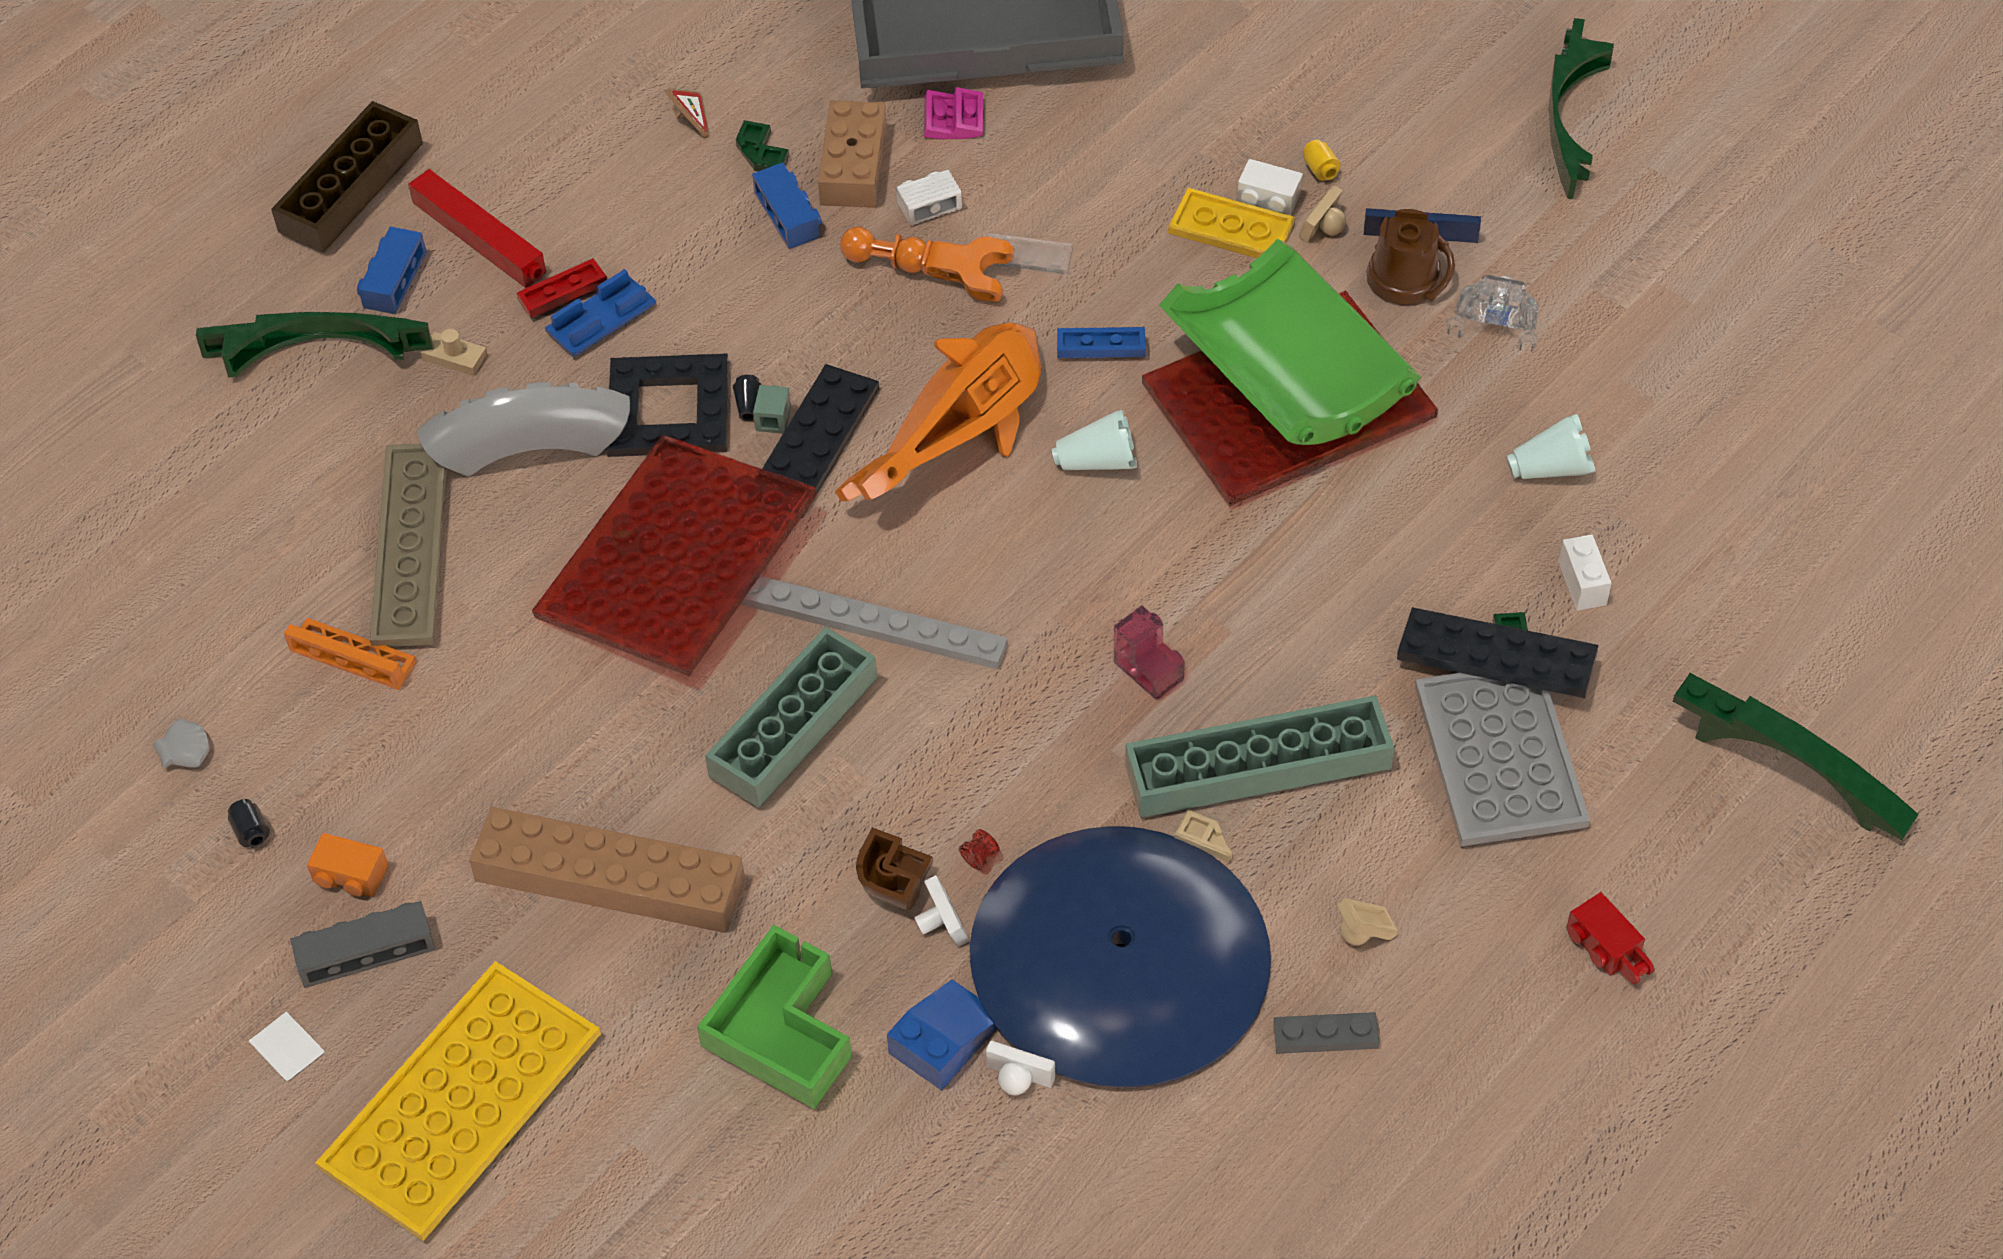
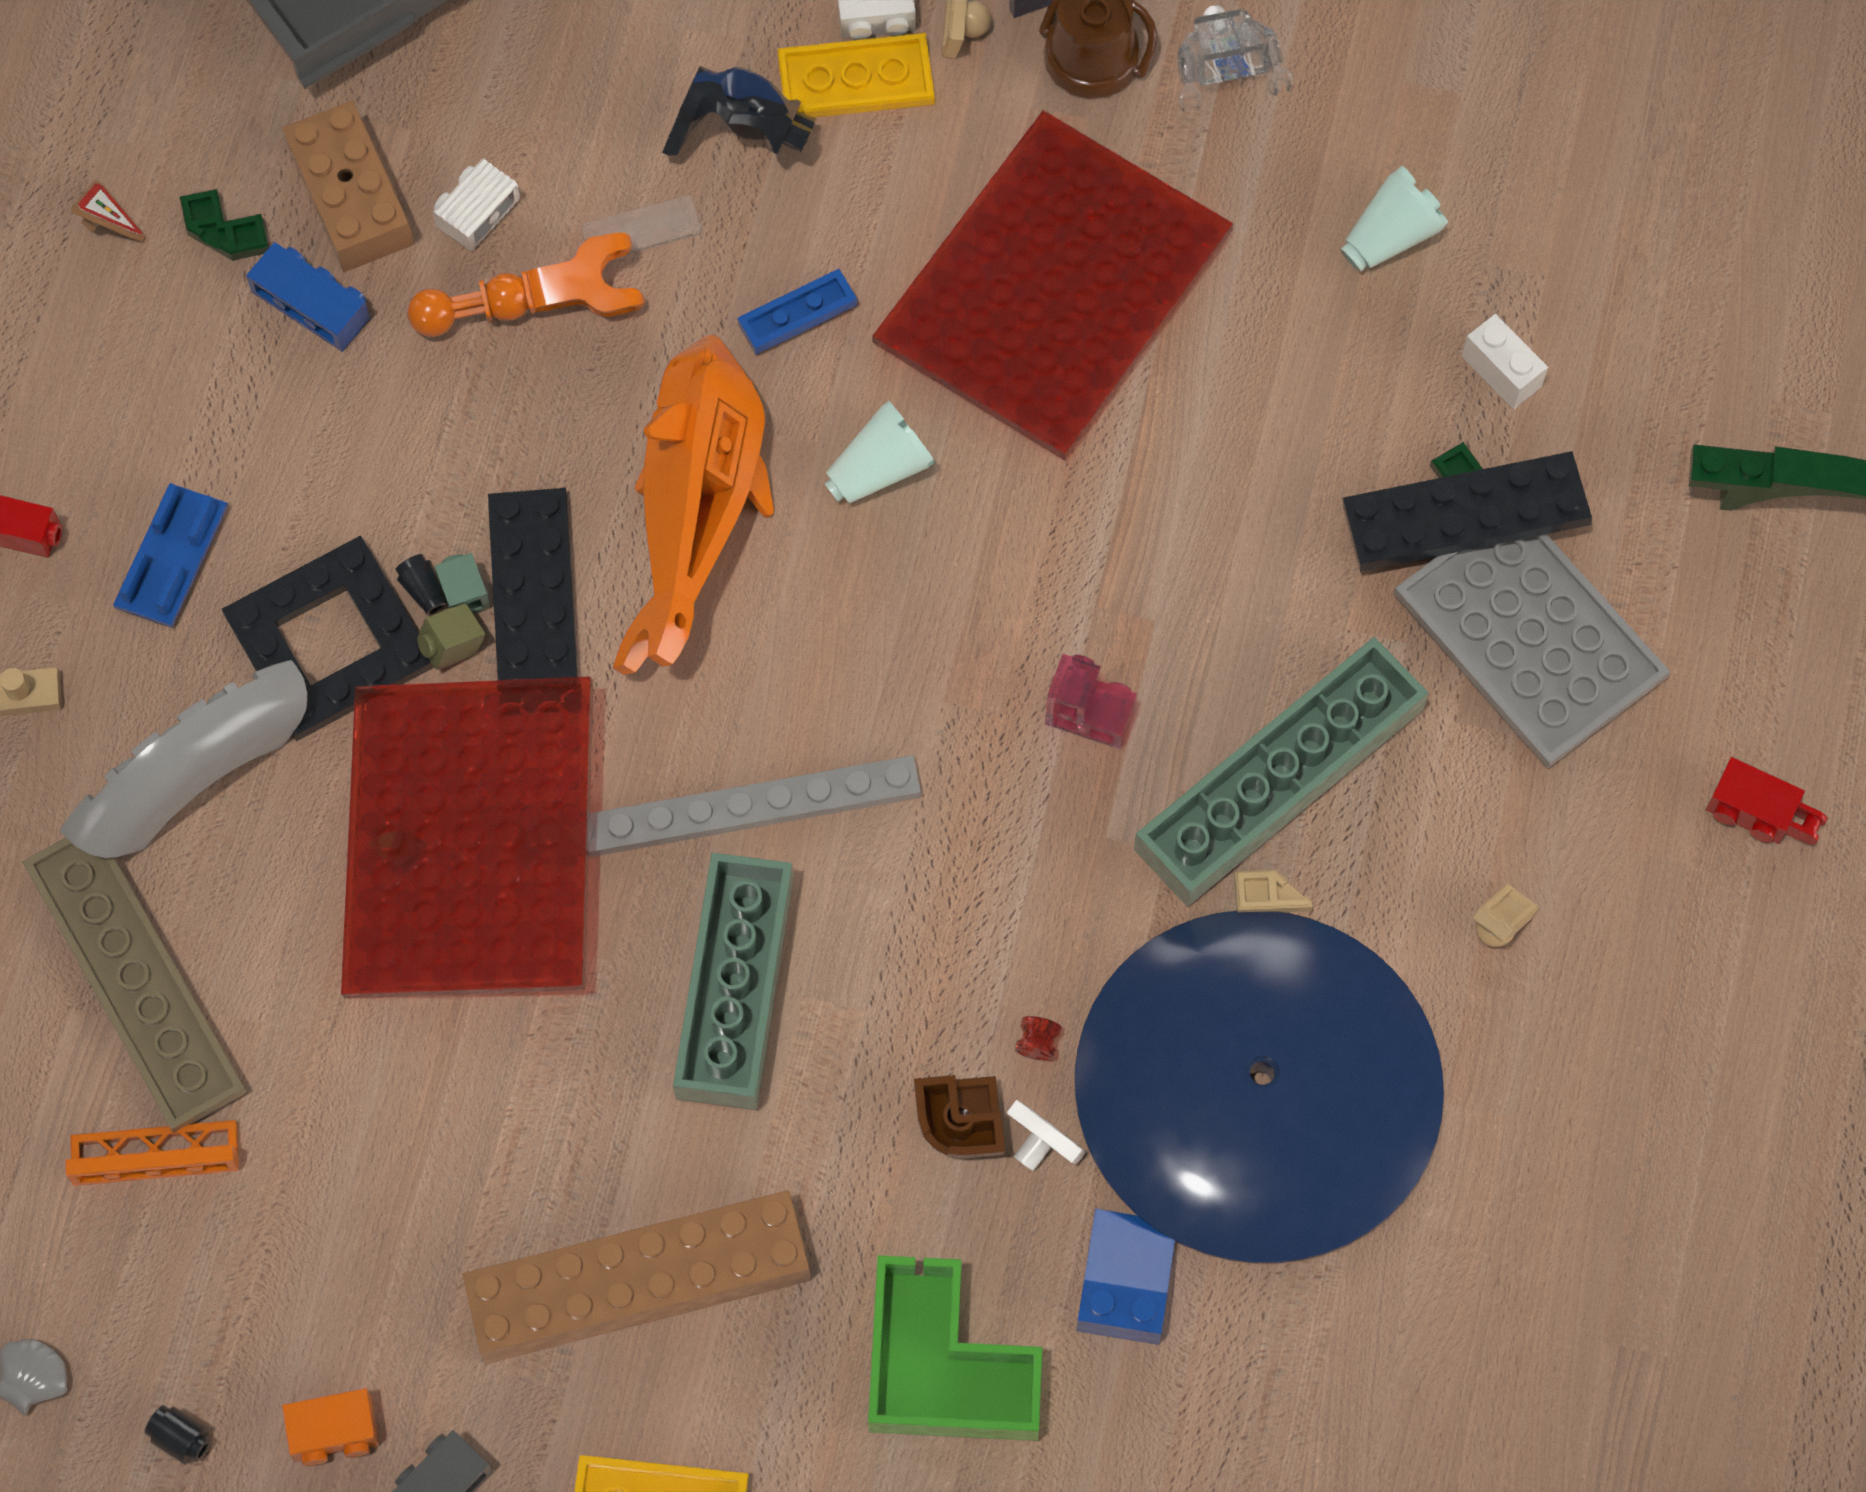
camera: 30 degrees left, 15 degrees up
(561, 288) = (100, 540): red plate -> none
(743, 432) = (450, 636): none -> olive brick
(953, 115) = (433, 70): dark pink slope -> none
(1019, 1068) = (1233, 1281): white tile -> none
(1140, 204) = (748, 106): none -> black hips
(1294, 347) = (1035, 223): bright green panel -> none
(1326, 1032) = (1527, 1065): dark grey plate -> none

